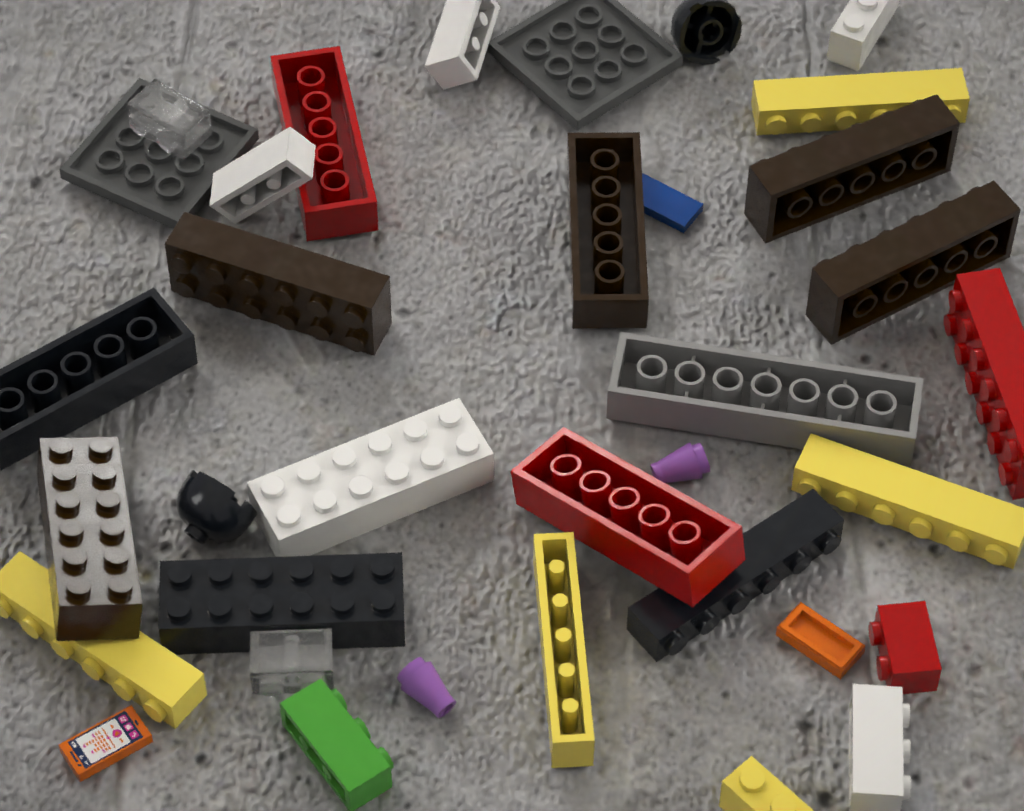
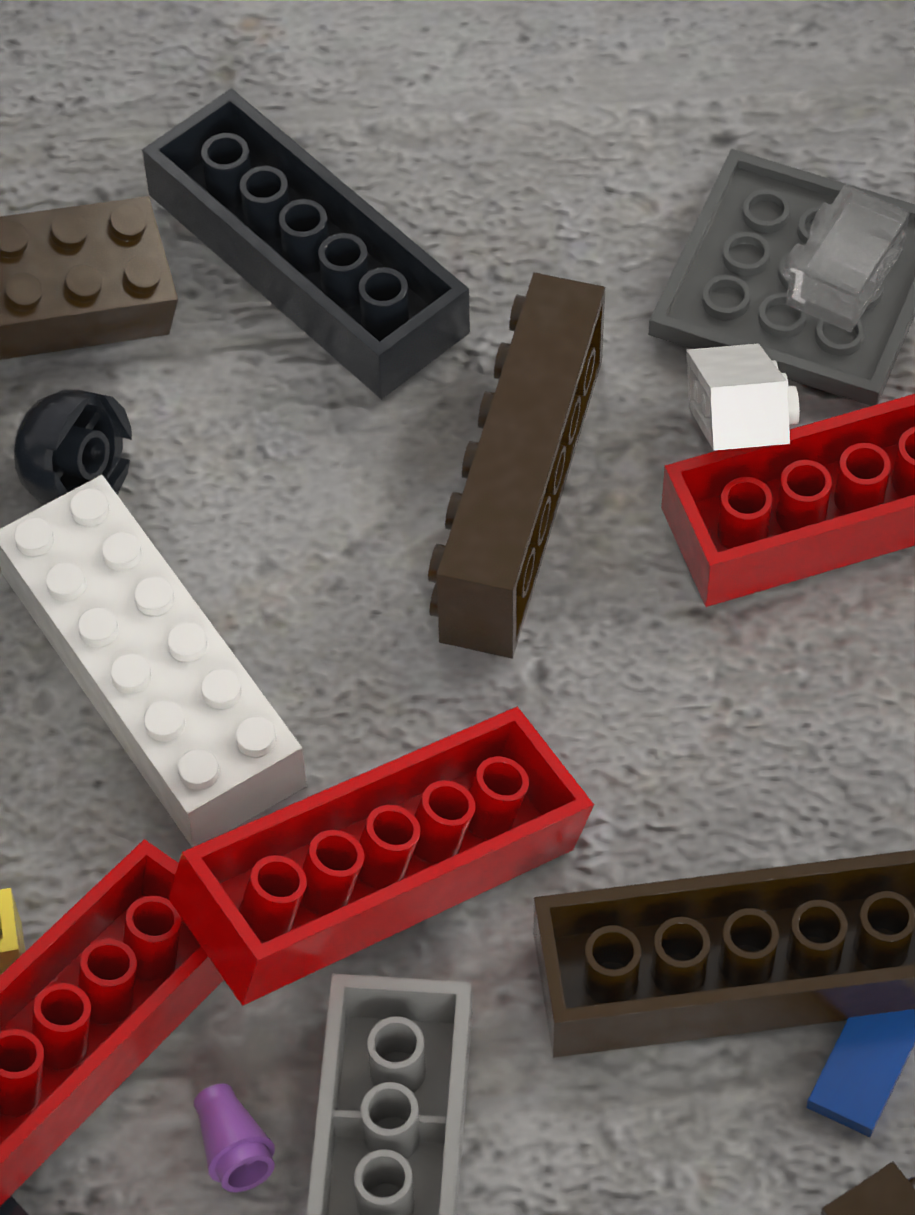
camera: 85 degrees right, 5 degrees up
(540, 361) = (378, 853): none -> red brick

